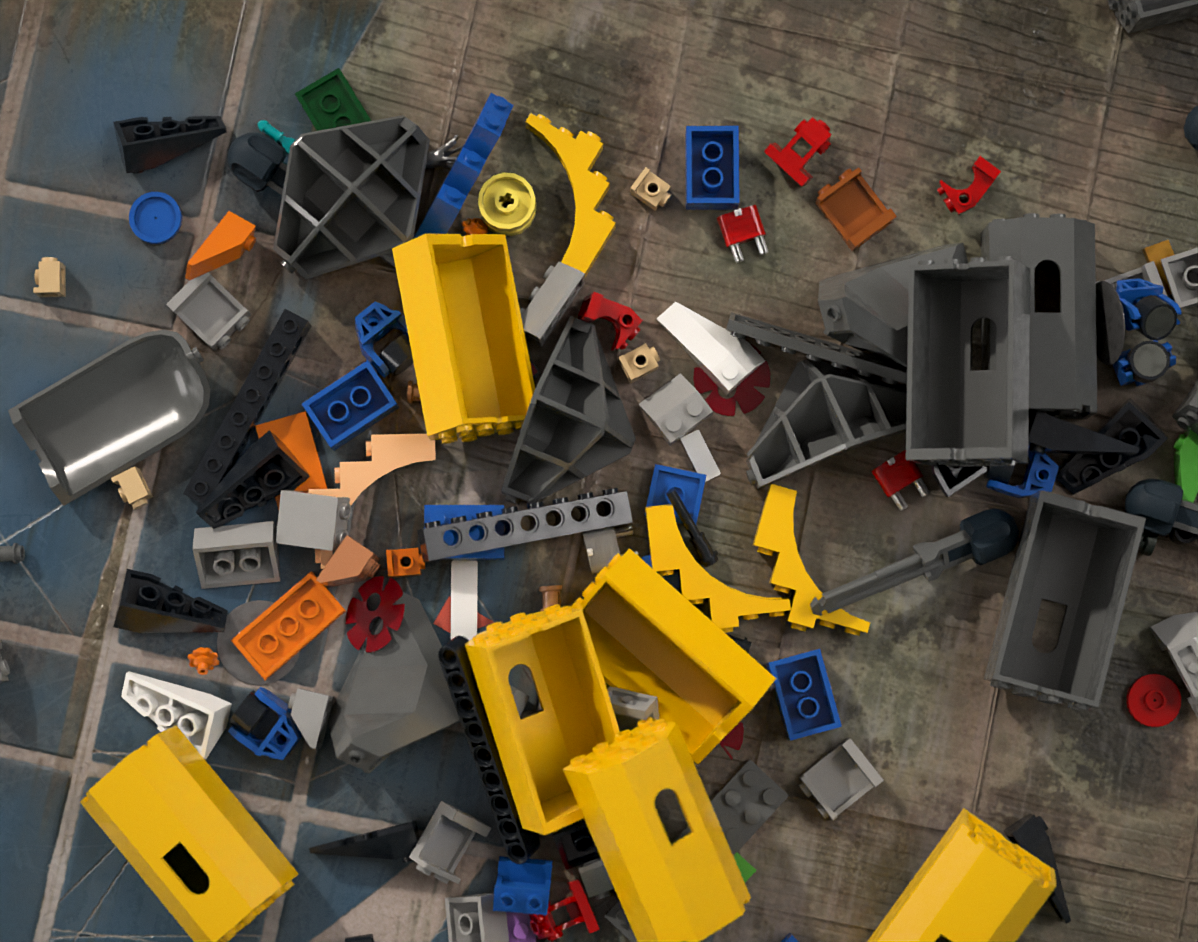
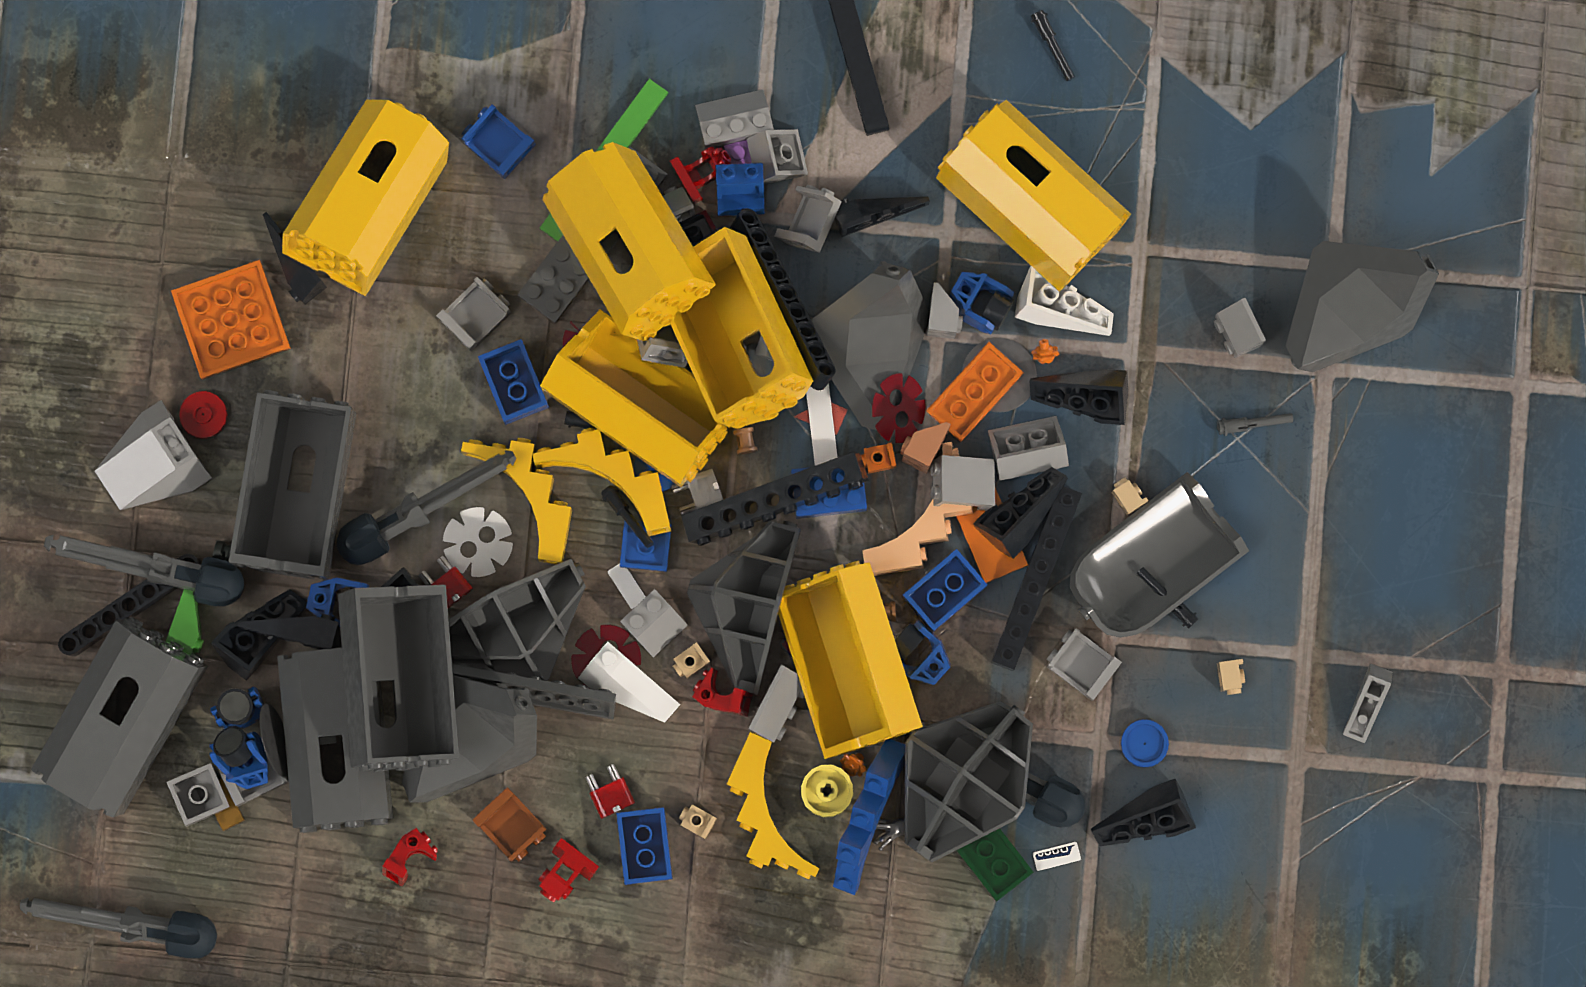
camera: 175 degrees right, 0 degrees up
(91, 351) = (1181, 611): none -> black pin
(222, 246) = (1075, 723): orange slope -> none
(268, 111) = (1056, 856): none -> white sticker
(275, 134) = (1032, 826): teal piece -> none
(862, 545) = (481, 561): none -> white piece
(1115, 805) = (230, 319): none -> orange plate

